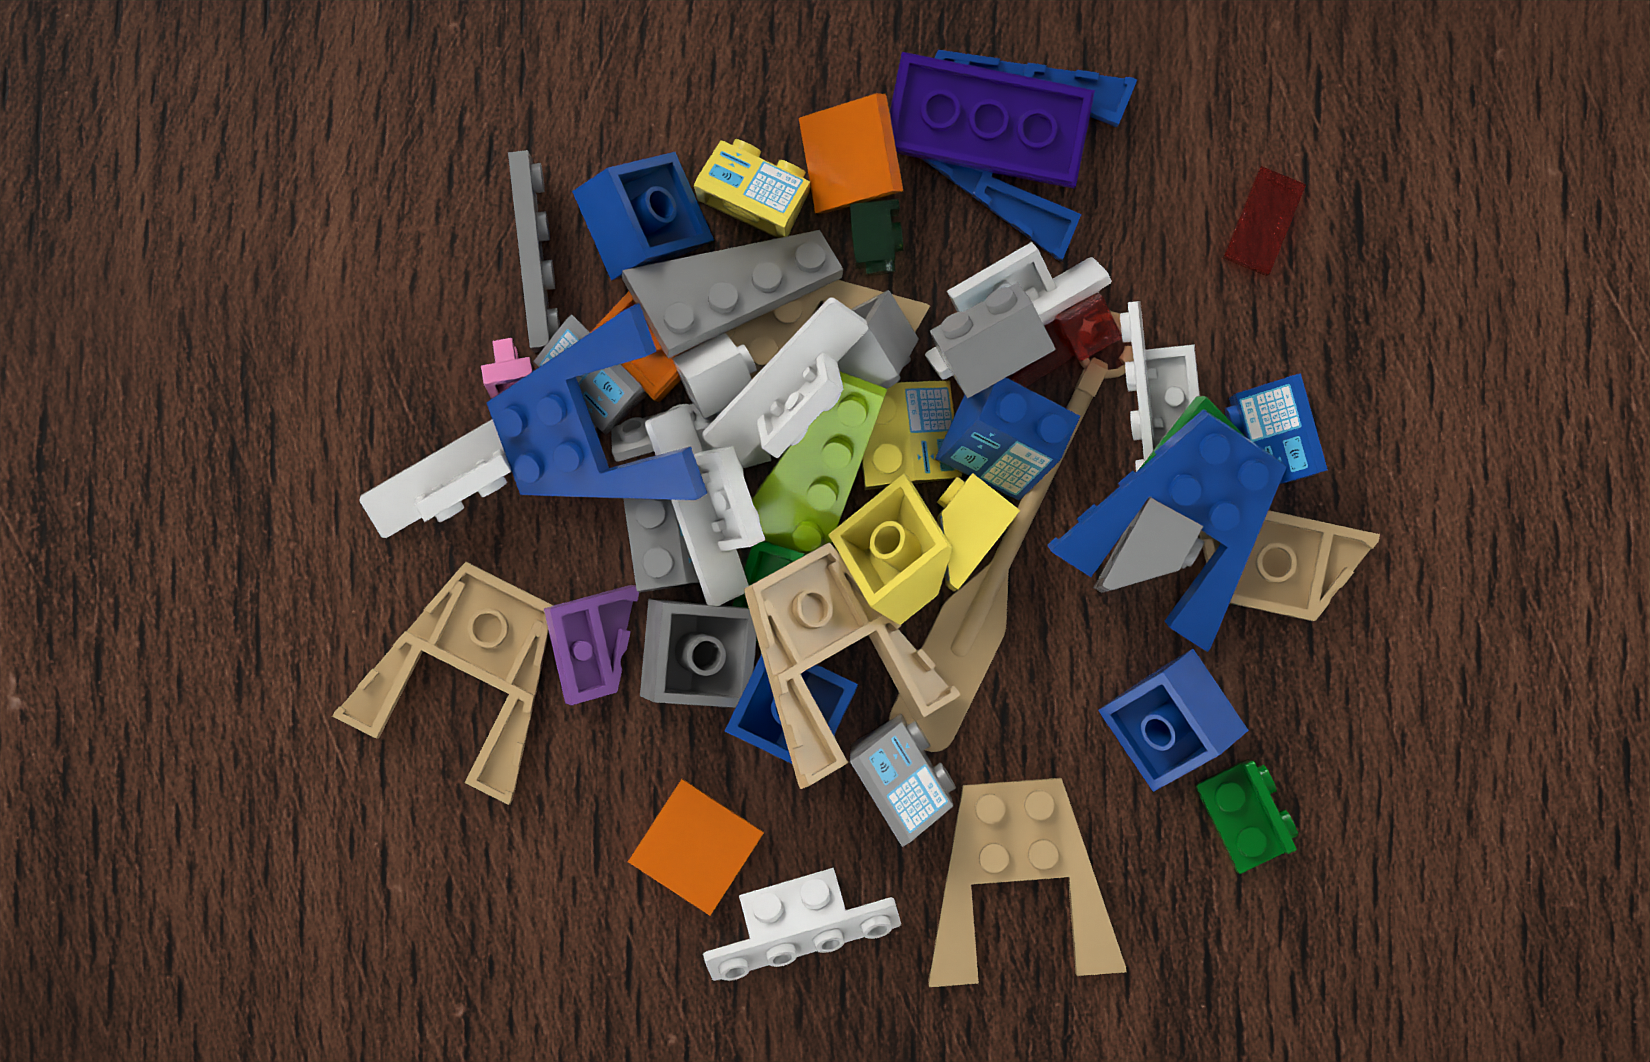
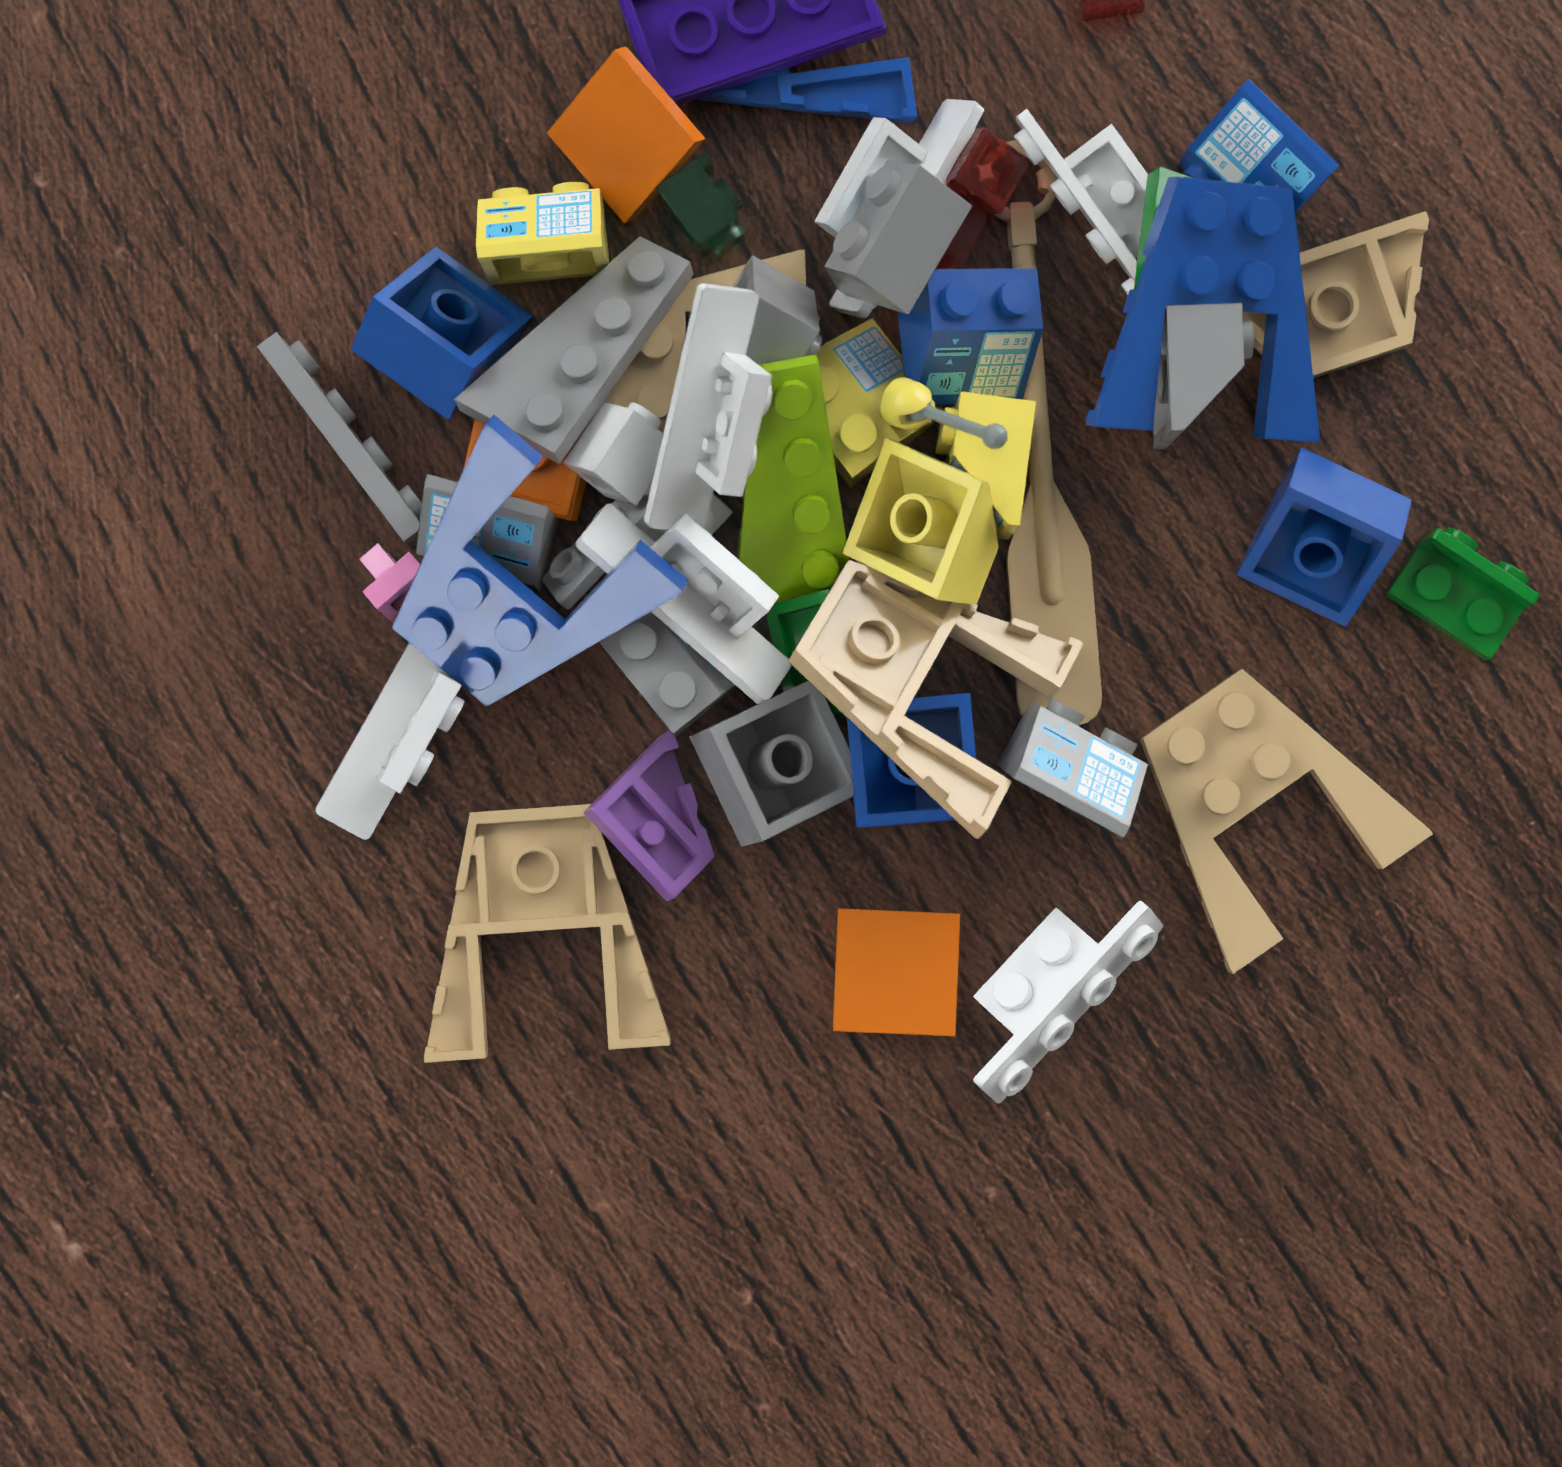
camera: 30 degrees left, 0 degrees up
(934, 462) = (910, 407): none -> hinge

